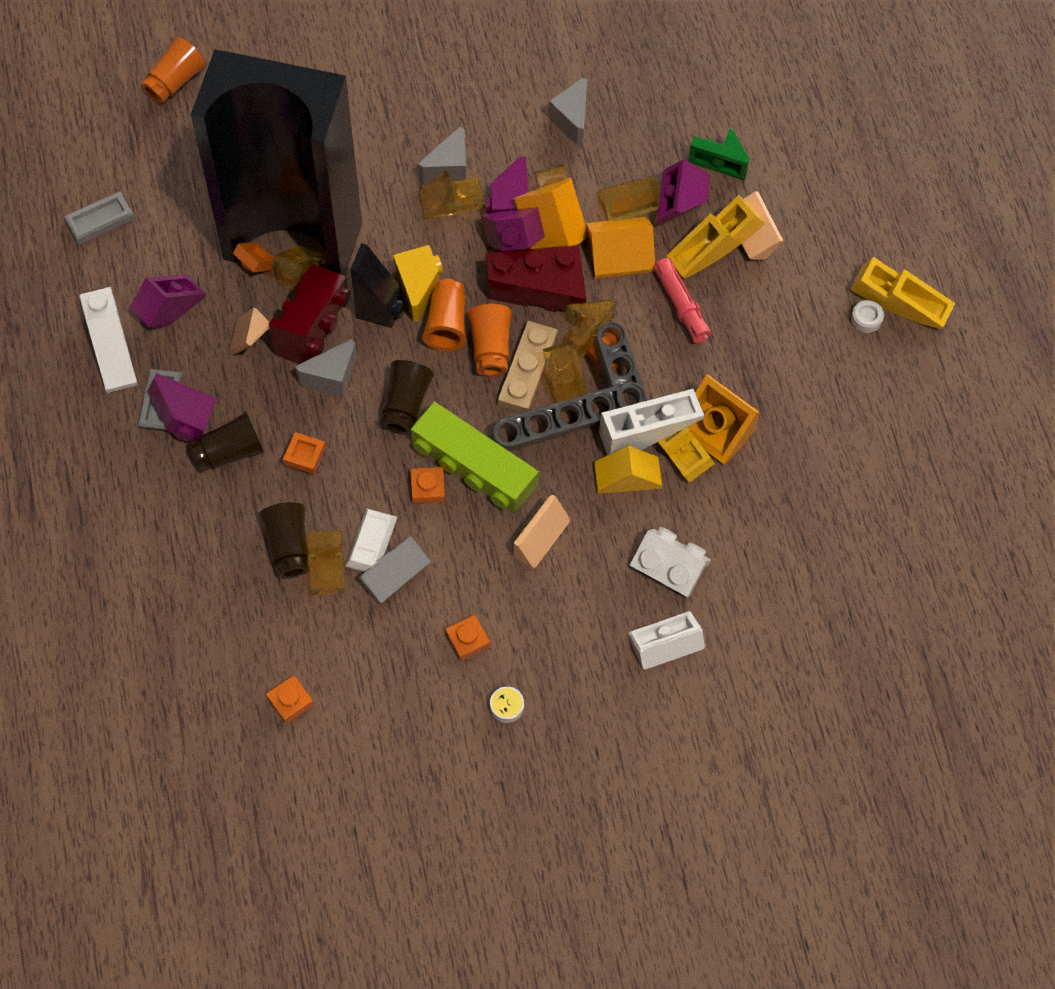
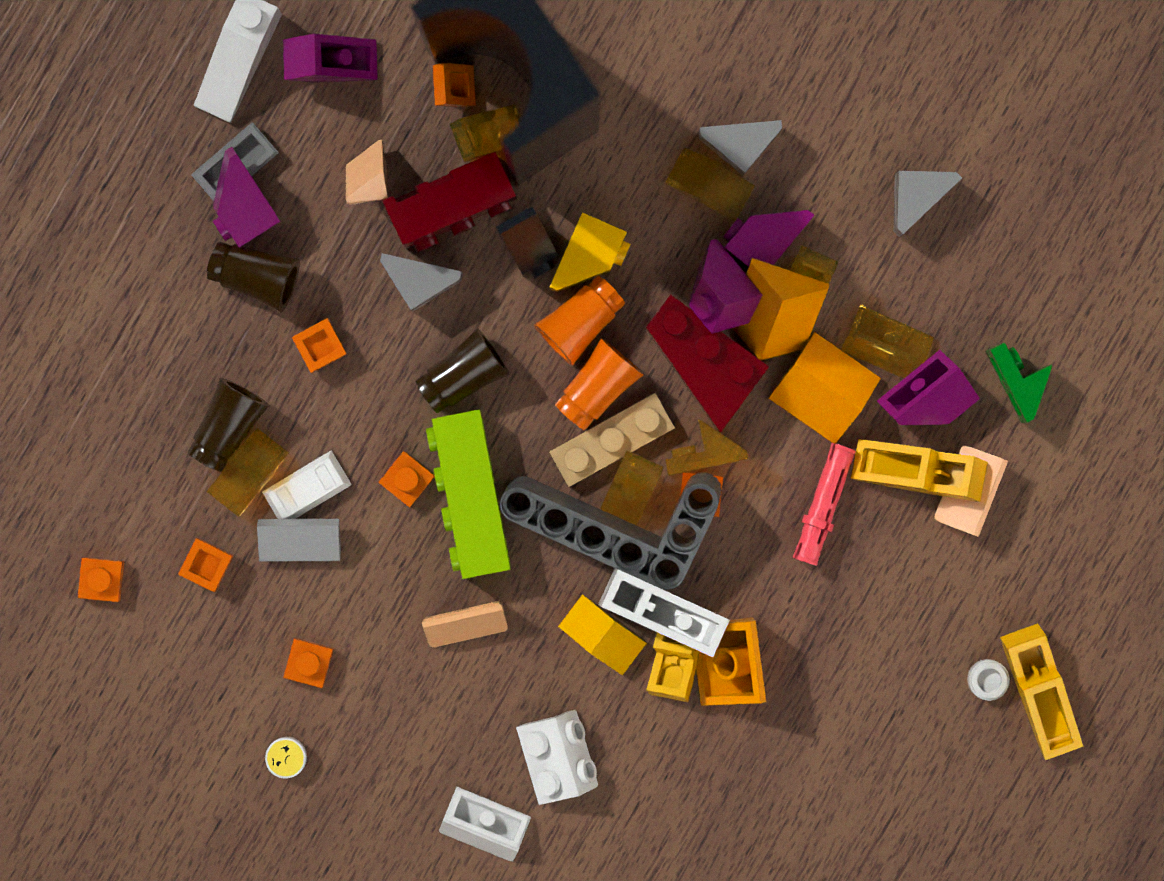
camera: 40 degrees right, 25 degrees up
(349, 632) = (205, 564): none -> orange plate

